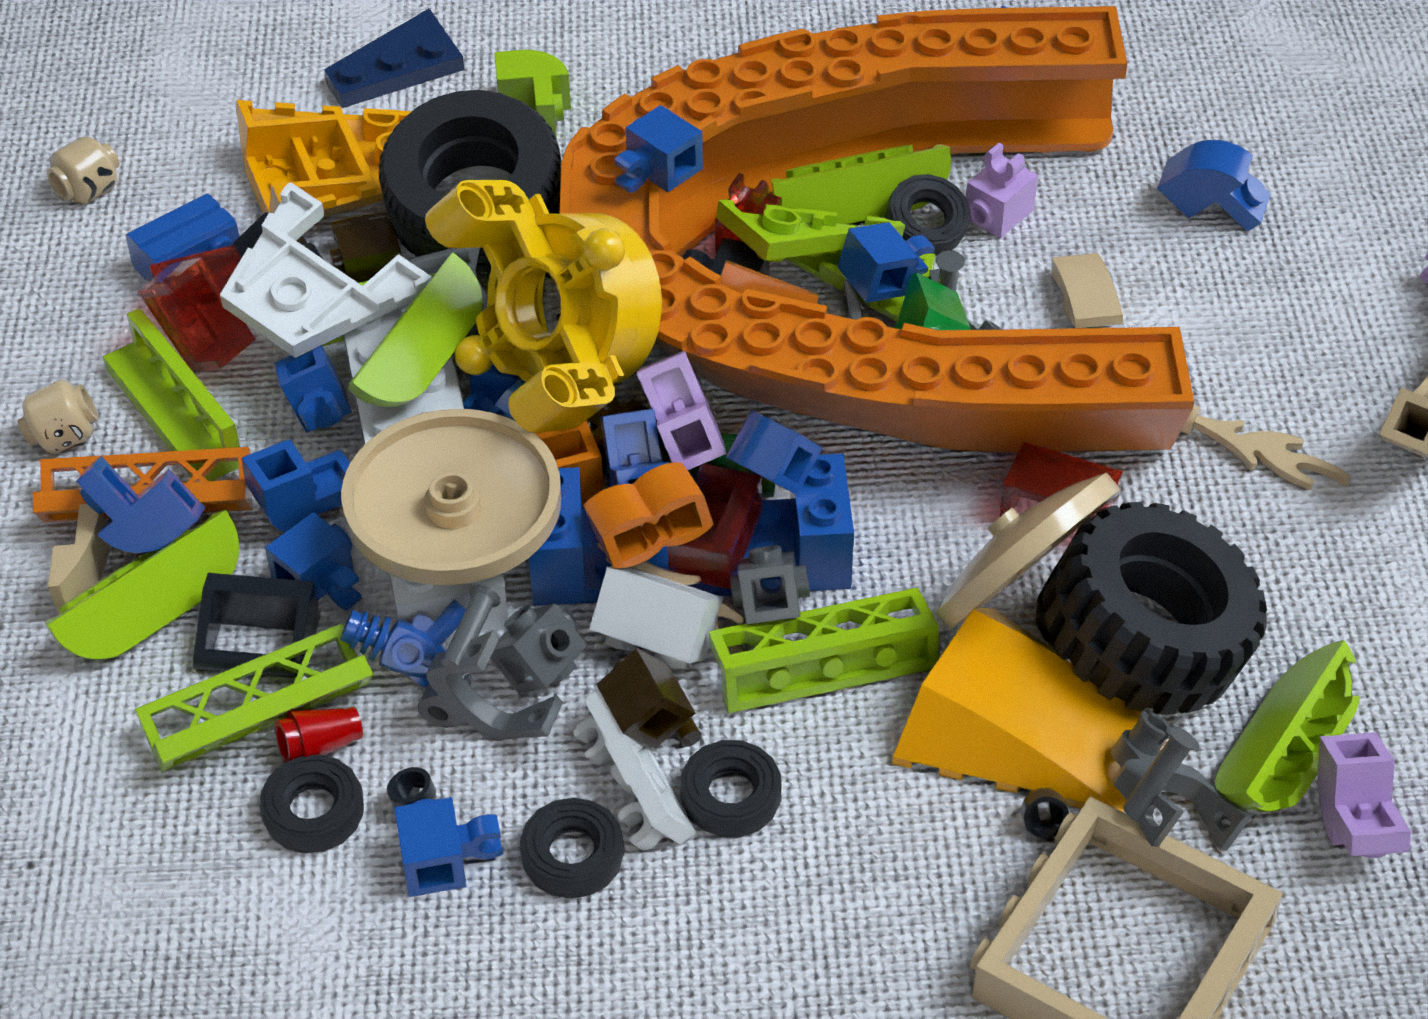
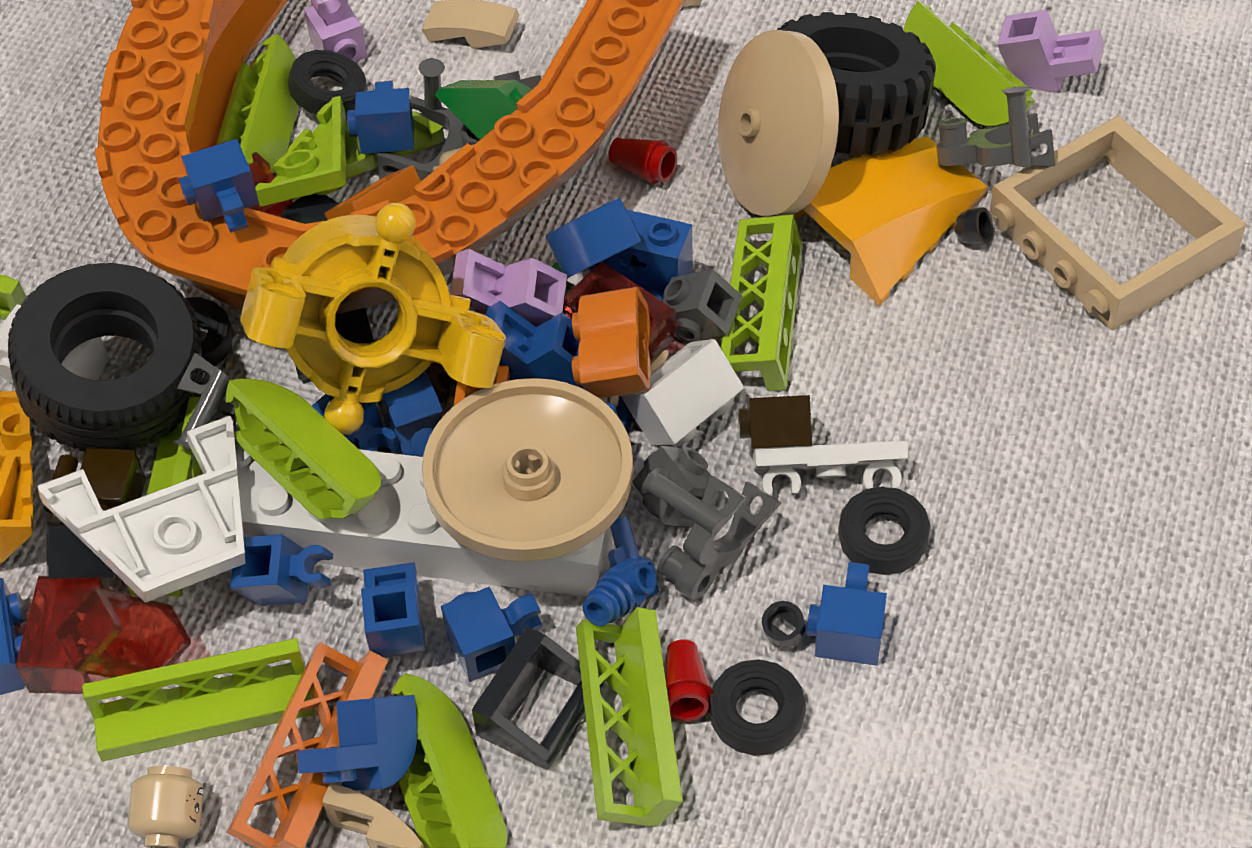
camera: 65 degrees left, 5 degrees up
(730, 818) = (875, 383): black tyre -> none
(974, 491) = (645, 158): none -> red cone
(1043, 472) = (675, 102): clear red panel -> none

